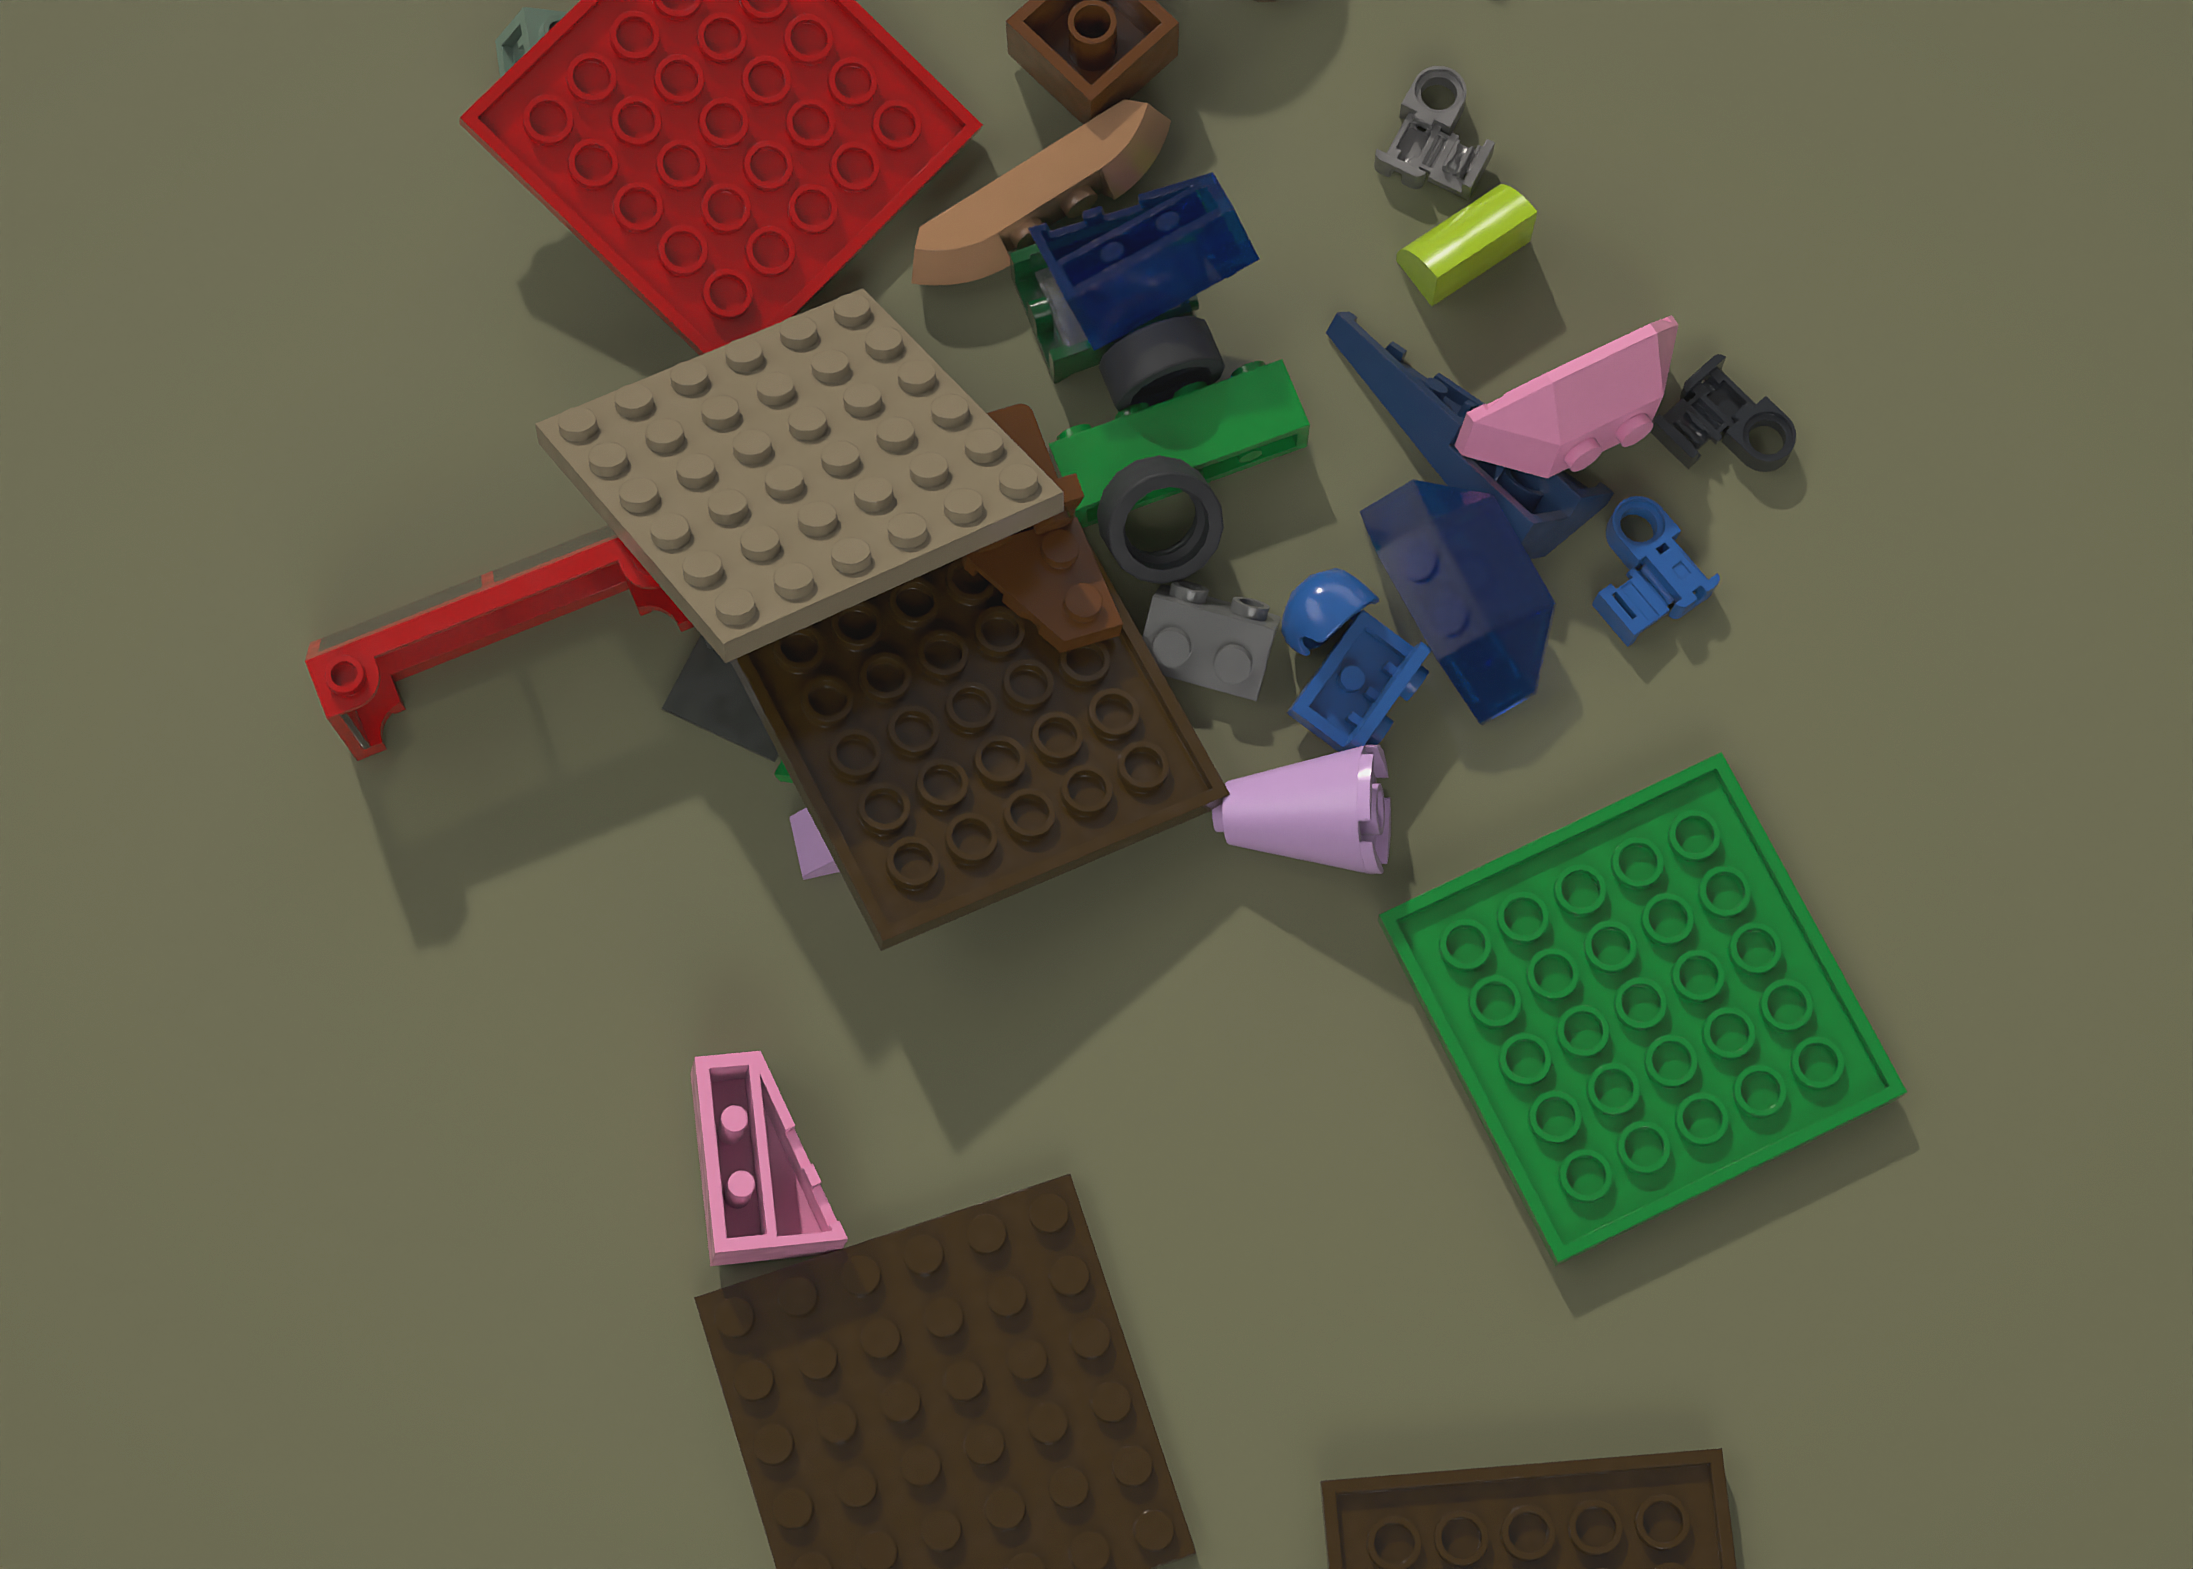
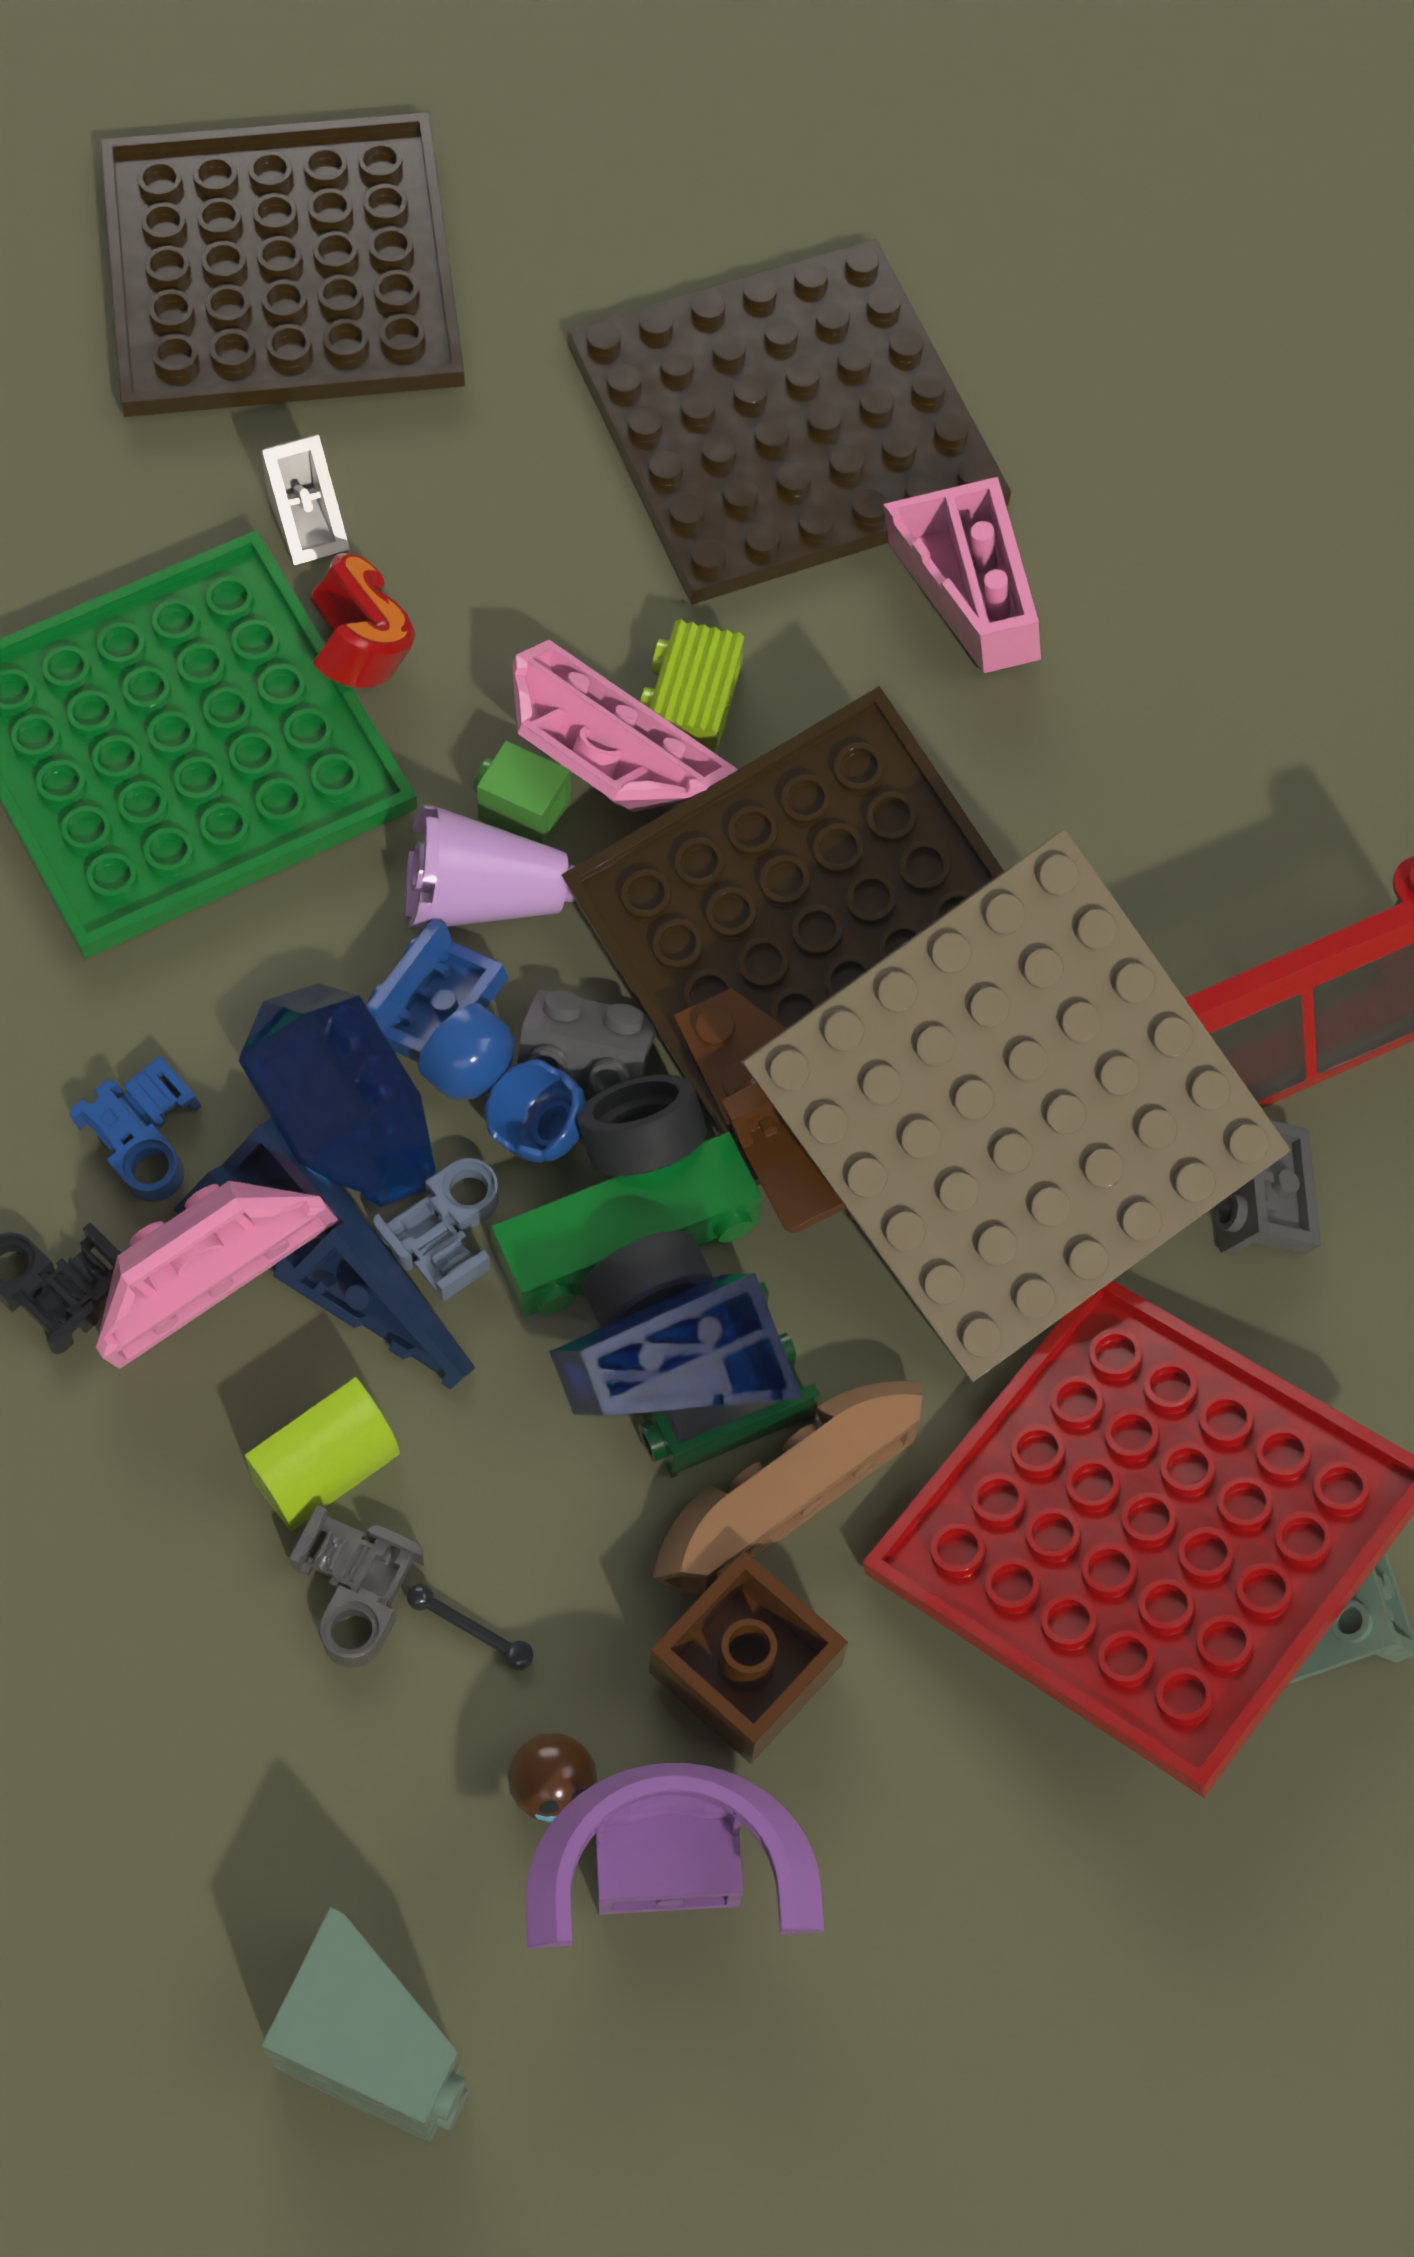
camera: 170 degrees right, 10 degrees down
(533, 482) = (1275, 1205): none -> dark grey bracket
(1077, 1039) = (696, 680): none -> lime brick
(1174, 944) = (607, 733): none -> bright pink wedge
(1261, 553) = (535, 1111): none -> blue hair
(1267, 918) = (522, 792): none -> bright green brick
(1292, 79) = (518, 1654): none -> black hinge
(1369, 455) = (439, 1241): none -> sand blue piece
(1430, 1127) = (367, 626): none -> red animal
(1503, 1298) = (303, 499): none -> white slope

